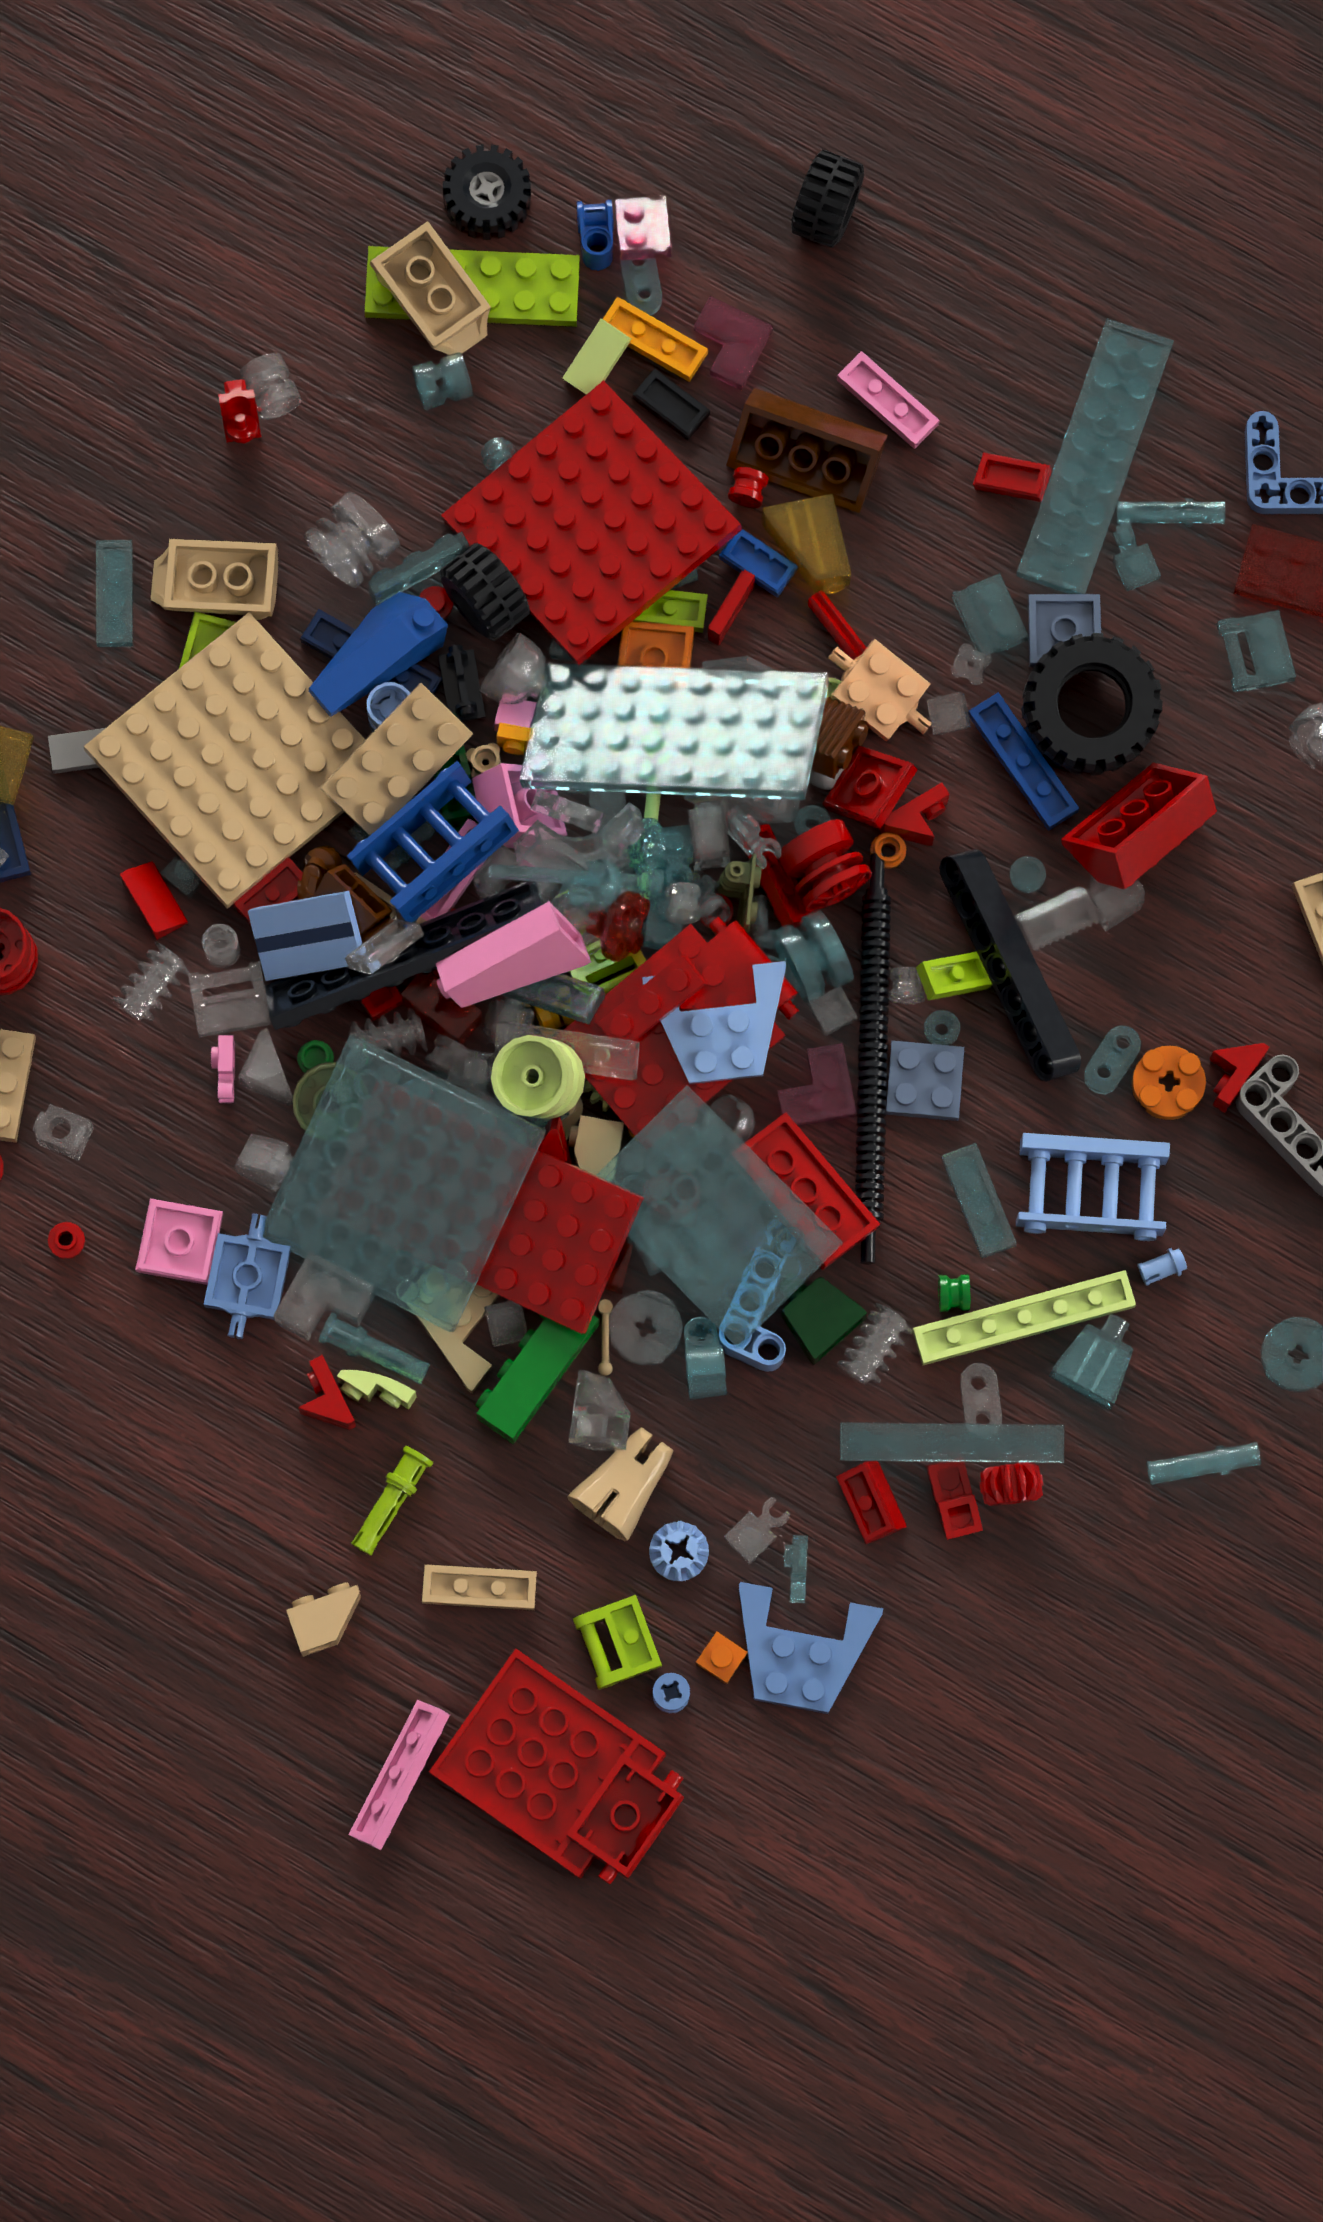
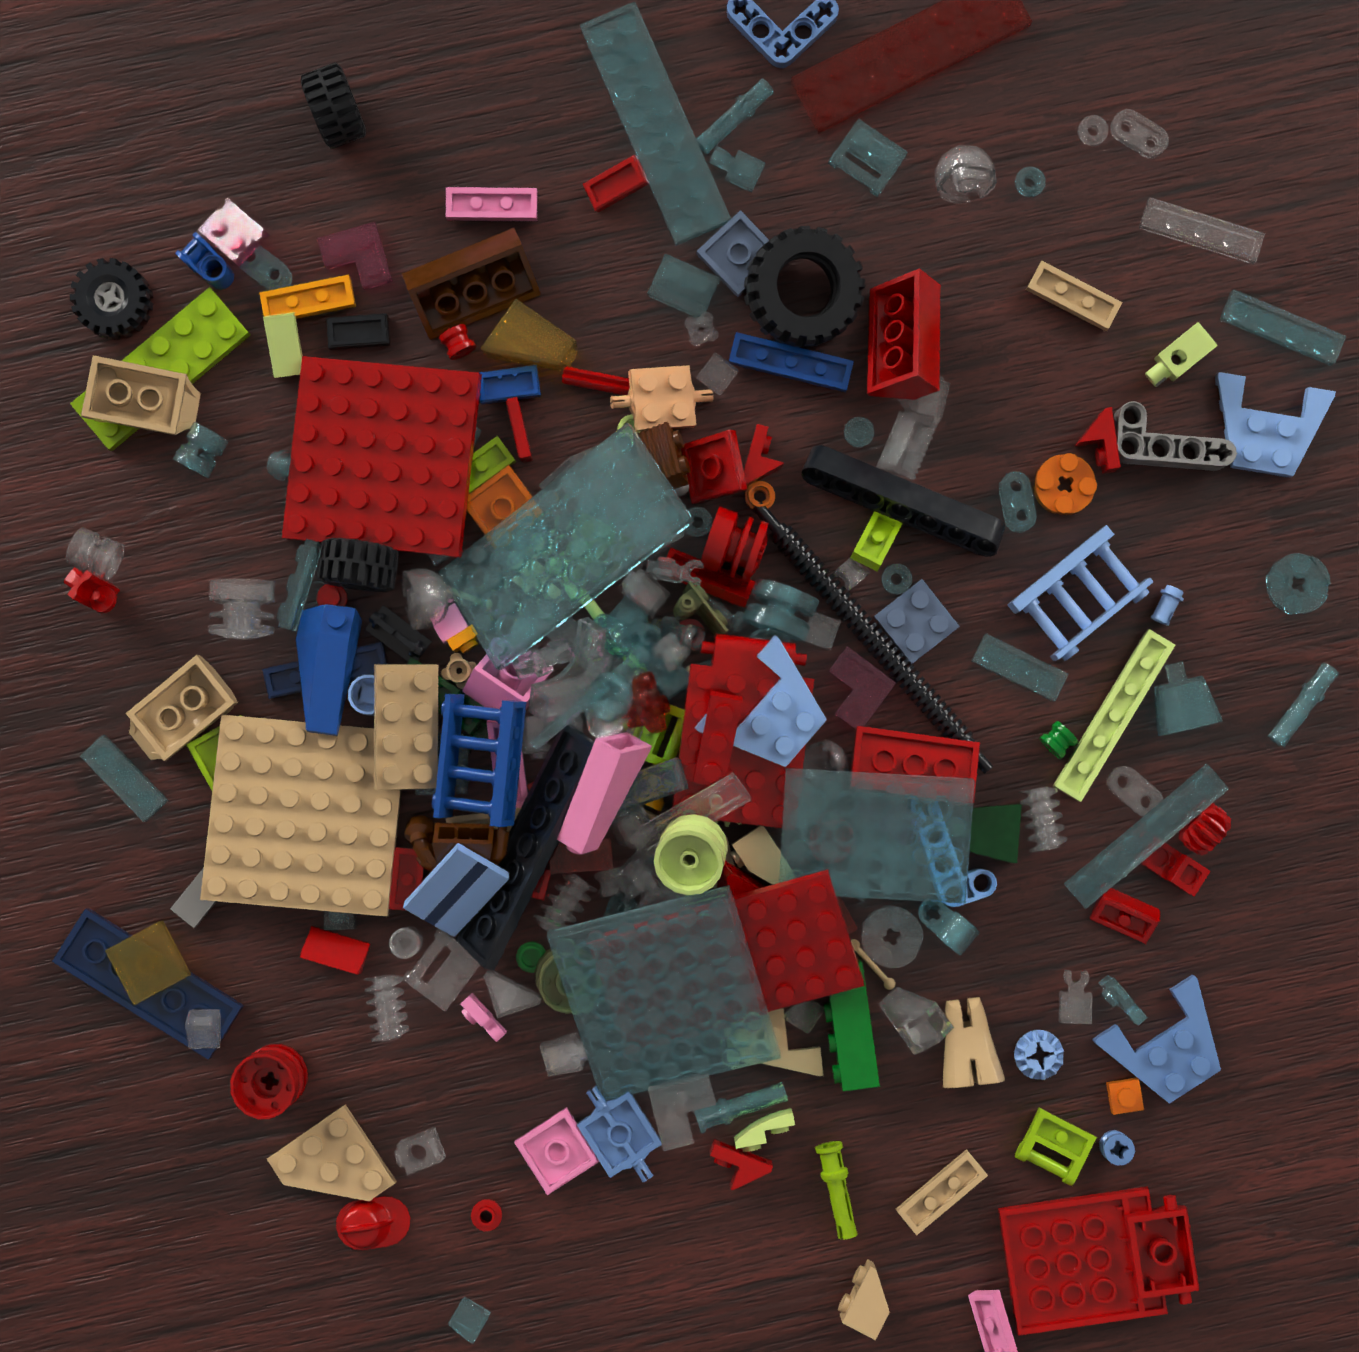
camera: 40 degrees left, 10 degrees up
(384, 946) = (513, 856): clear plate -> none

